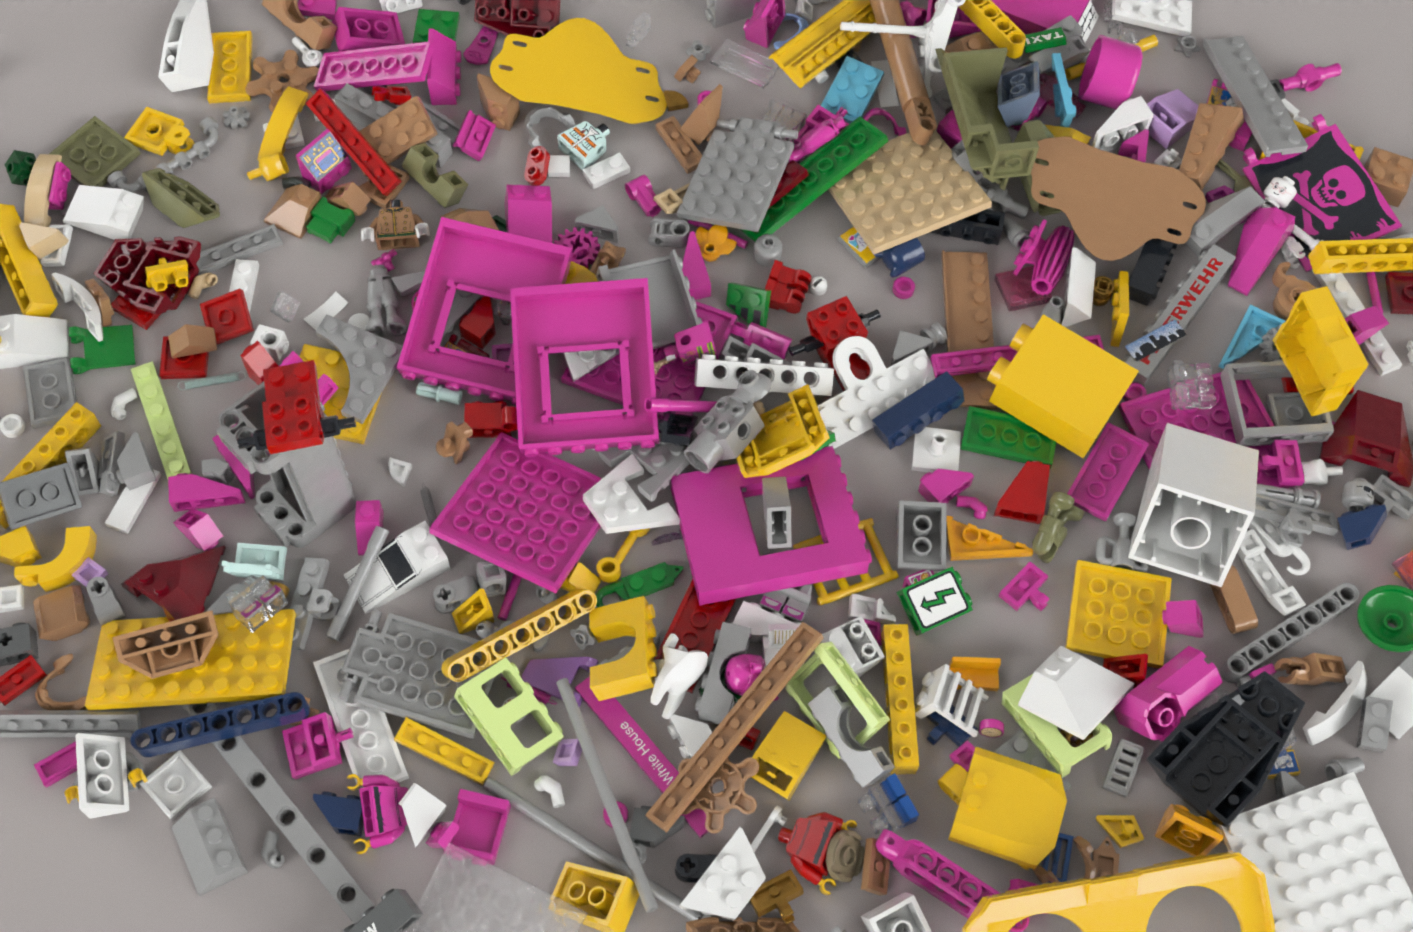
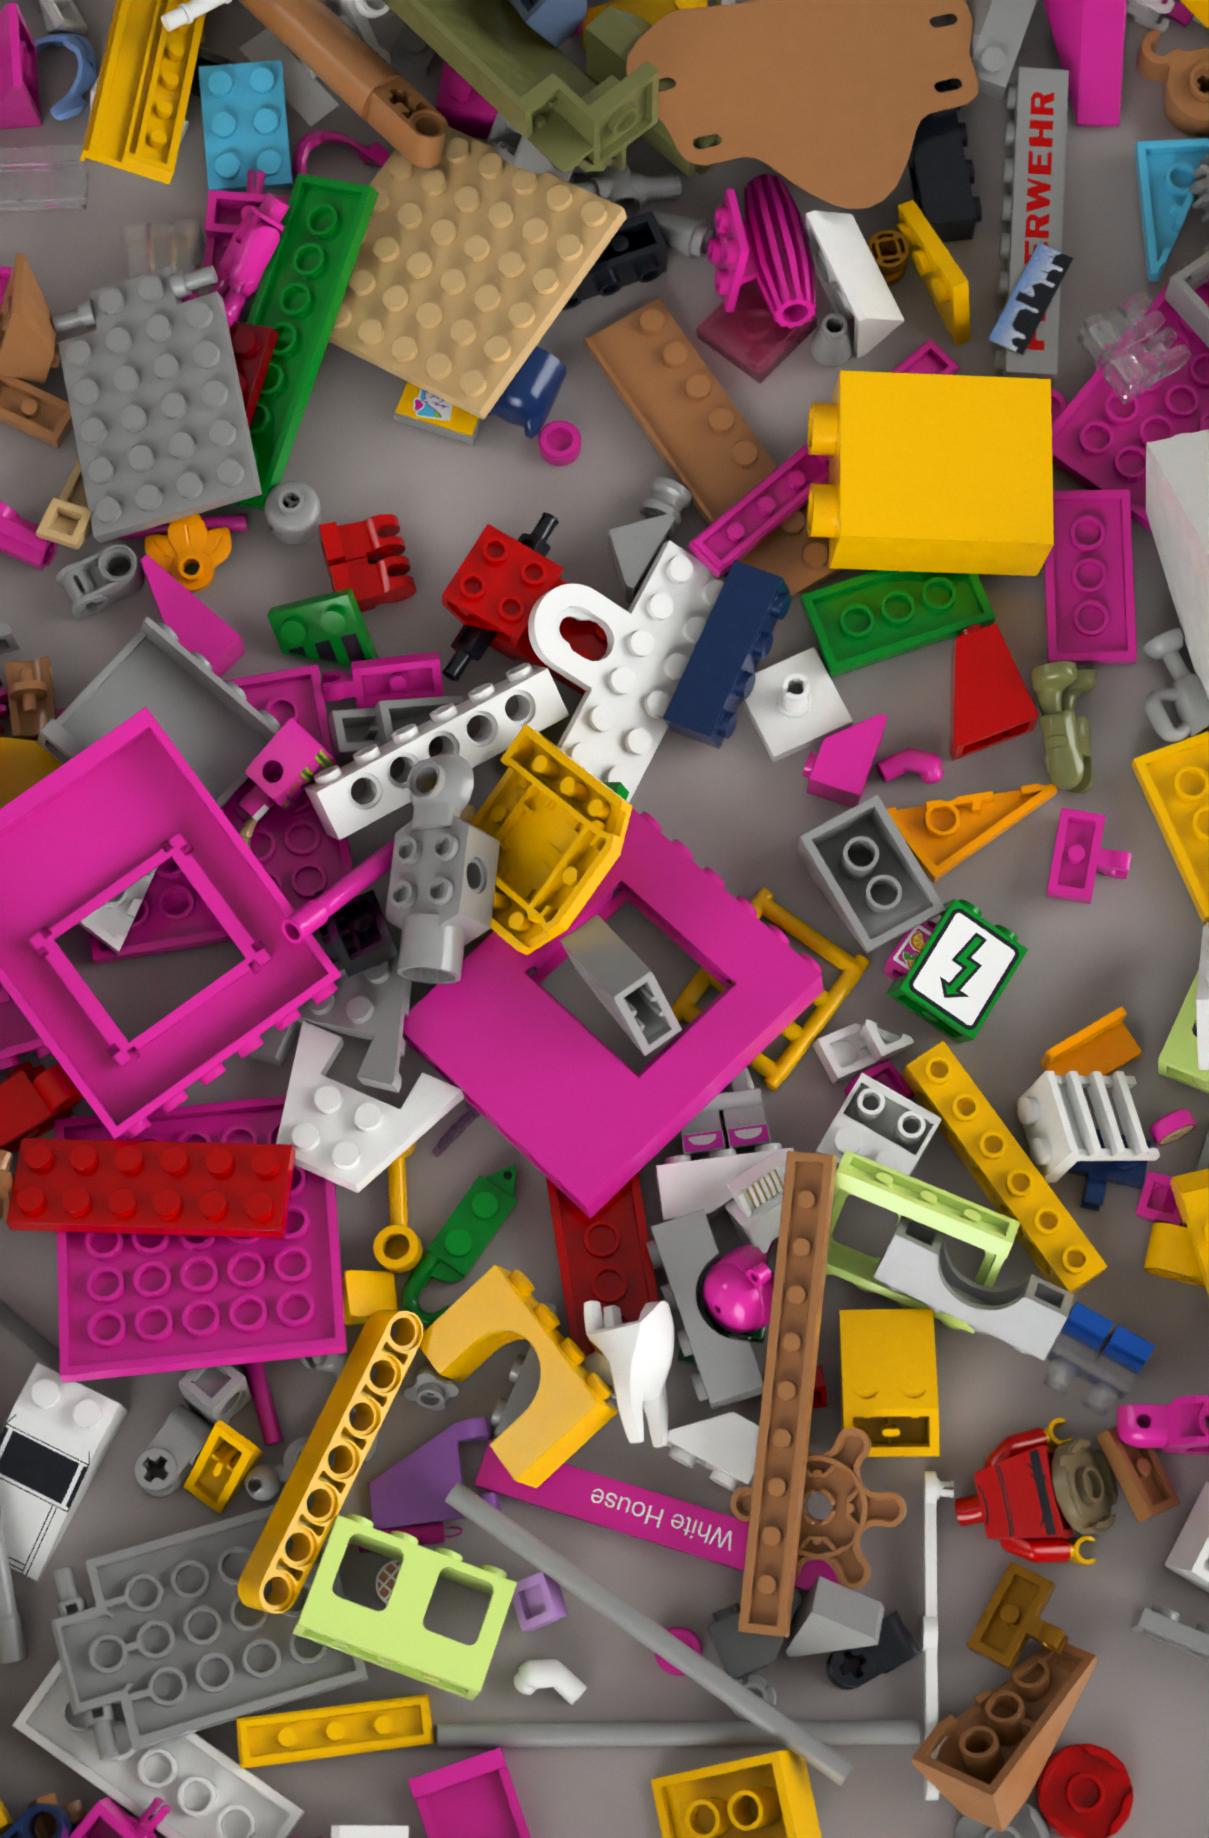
camera: 30 degrees left, 10 degrees up
(521, 479) = (151, 1187): none -> red plate
(692, 840) = (833, 1620): none -> light grey slope
(727, 881) = (931, 1648): white wing -> none
(821, 288) = (424, 525): white hinge -> none

